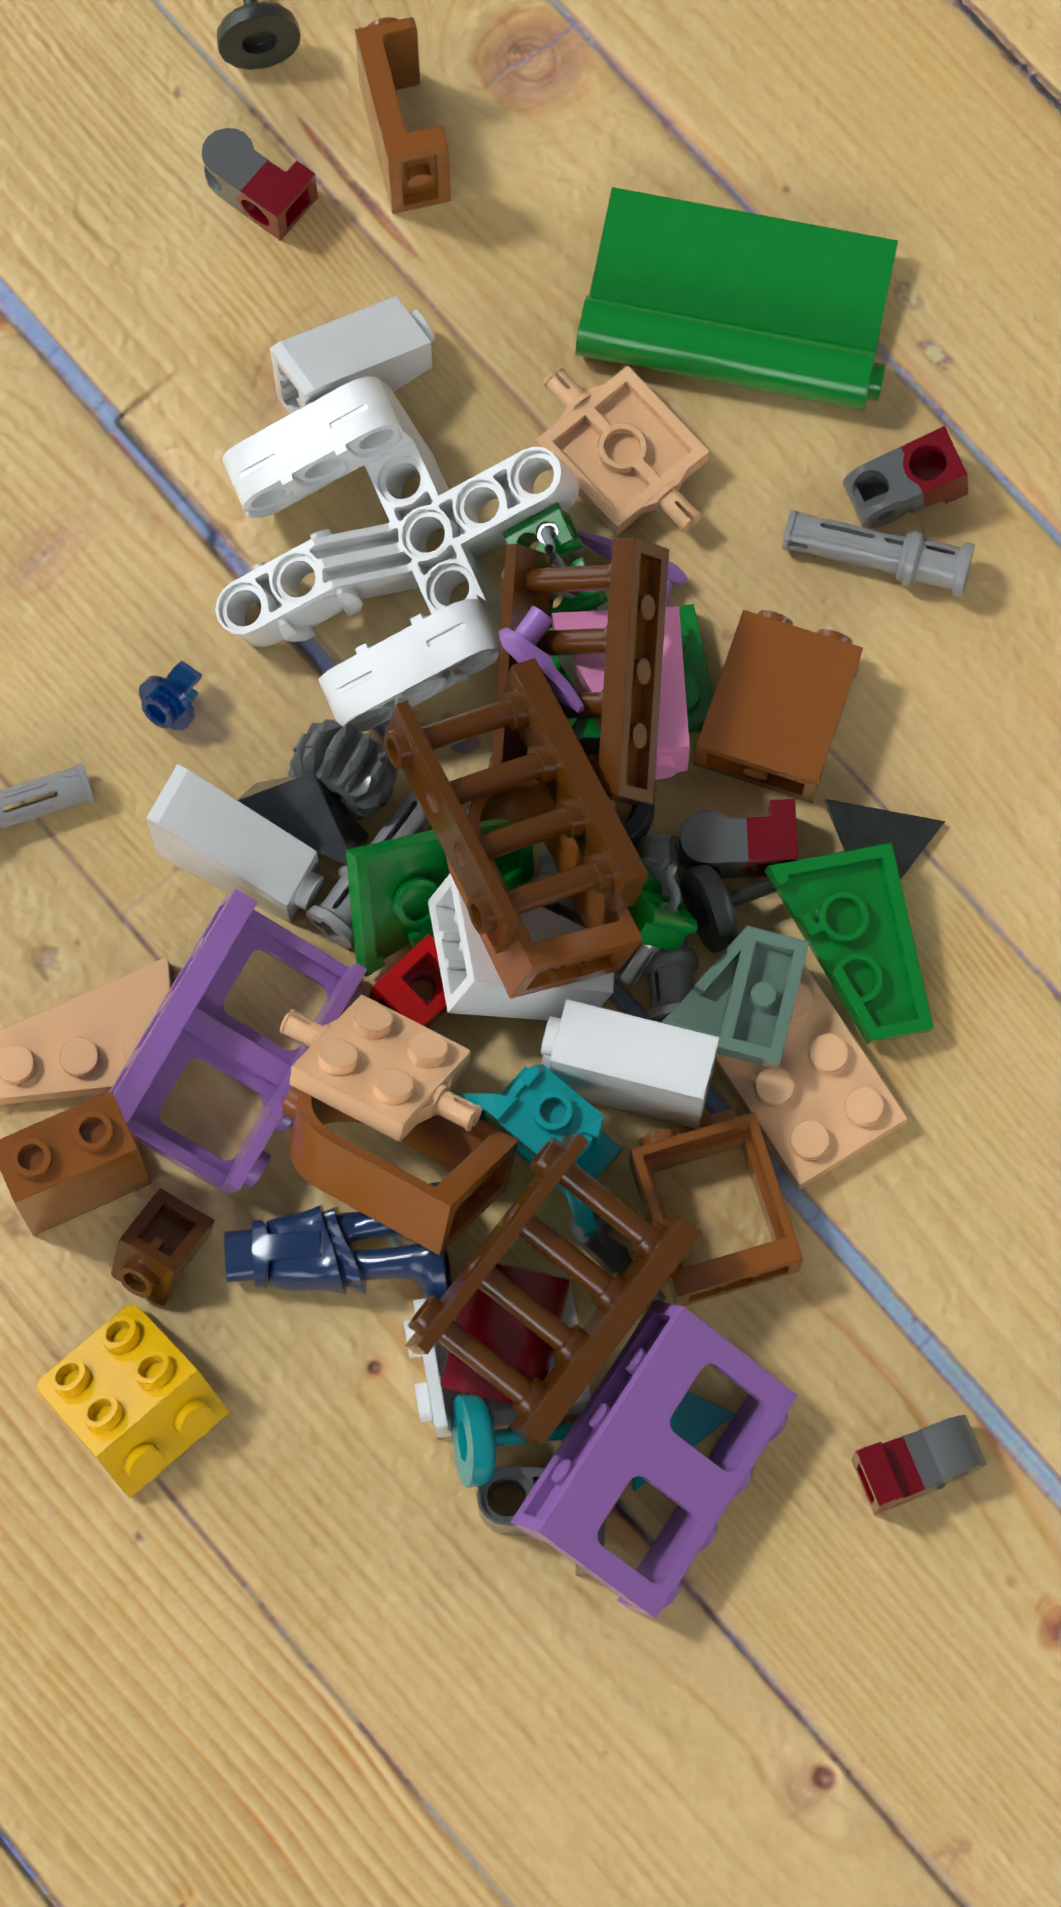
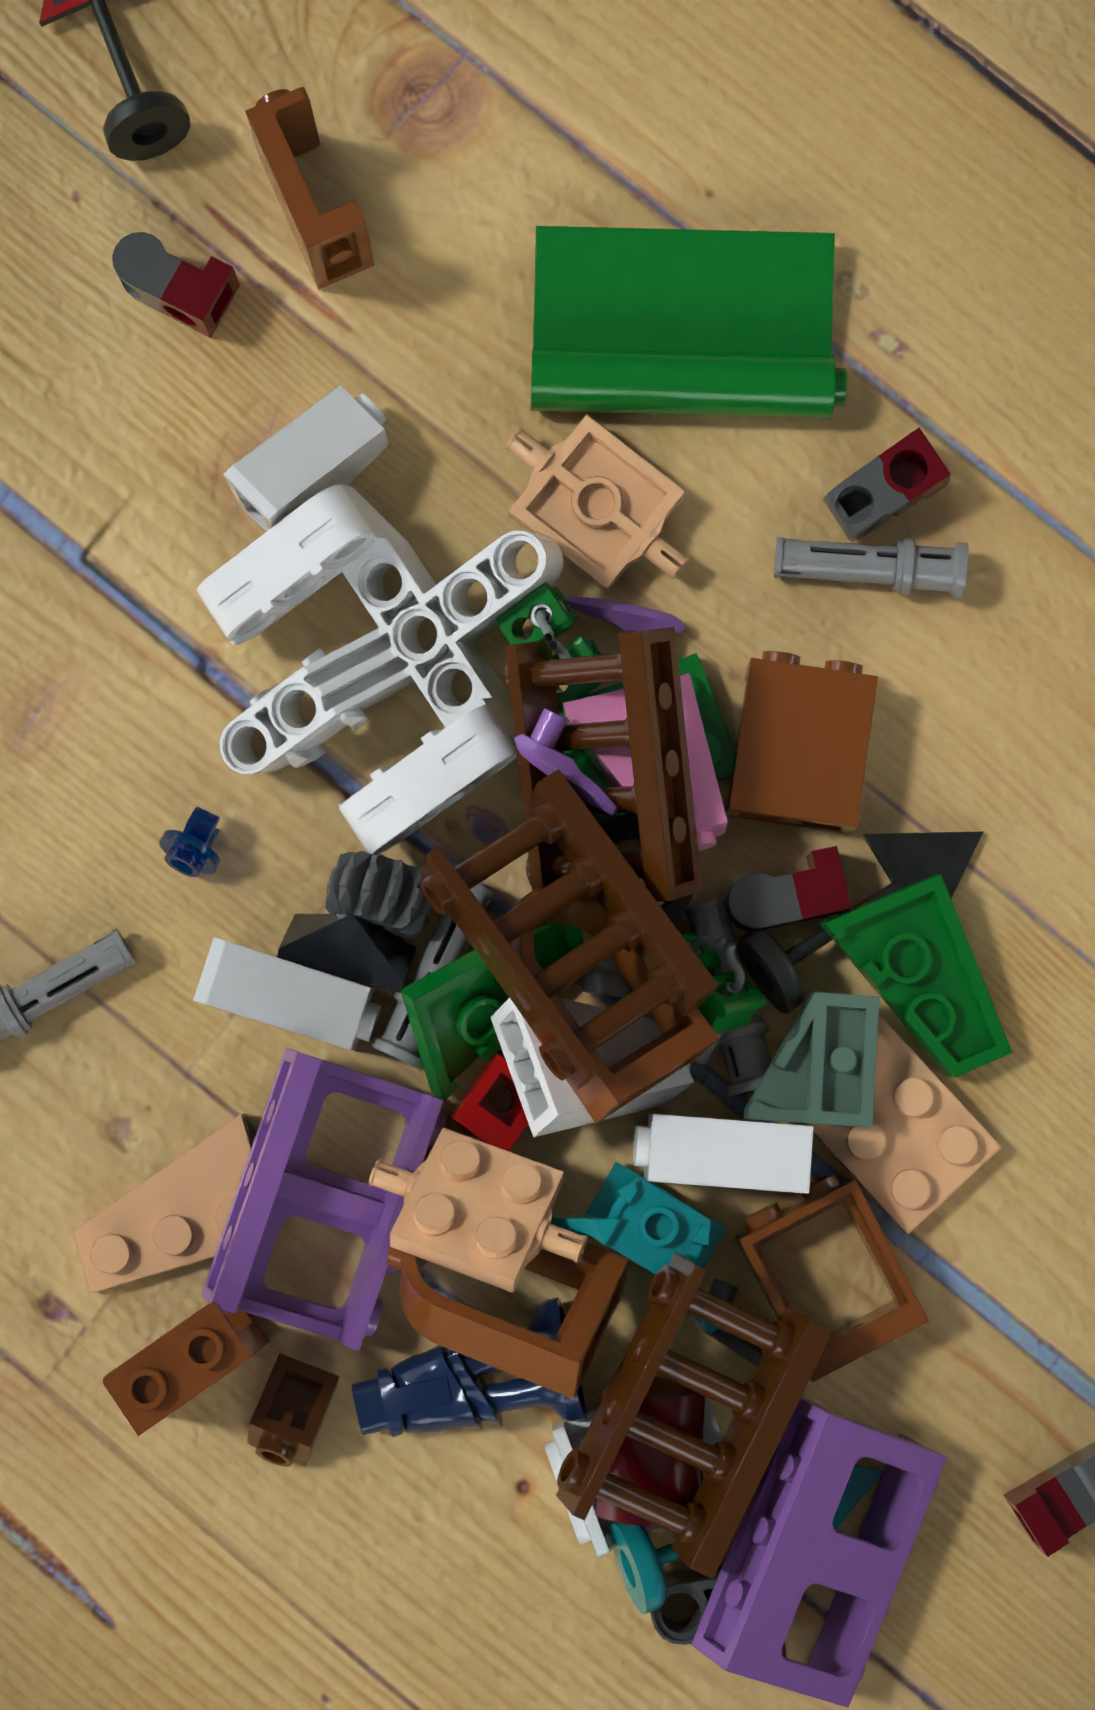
camera: 10 degrees left, 10 degrees up
(132, 1398) = (289, 1572): yellow bracket -> none

